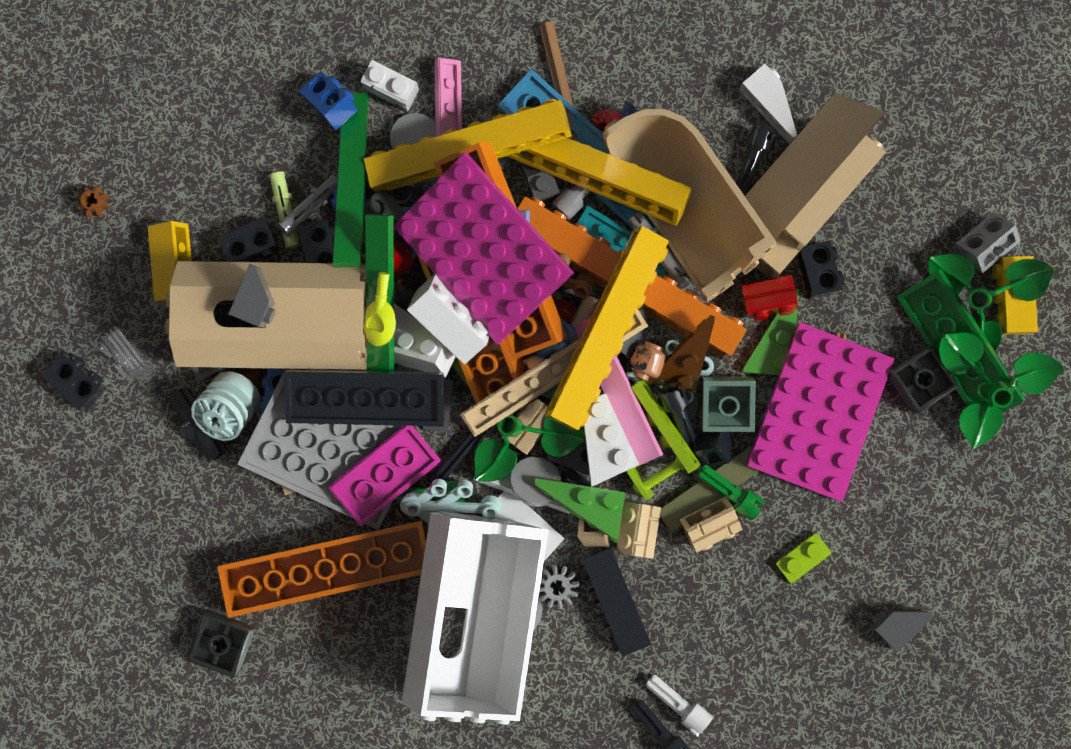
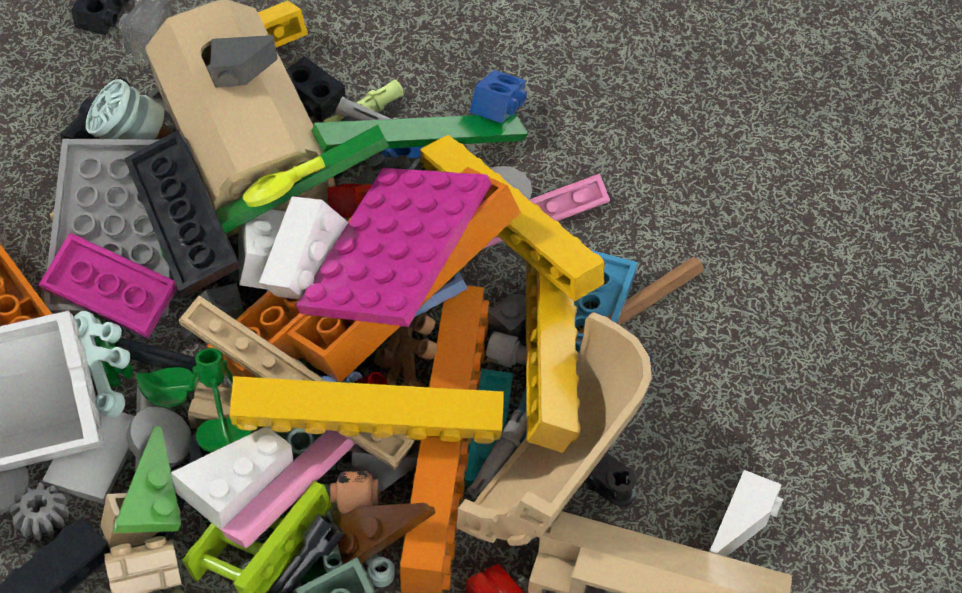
camera: 65 degrees right, 30 degrees down
(389, 85) = (545, 145): white brick -> none
(758, 143) = (678, 524): black piece -> none

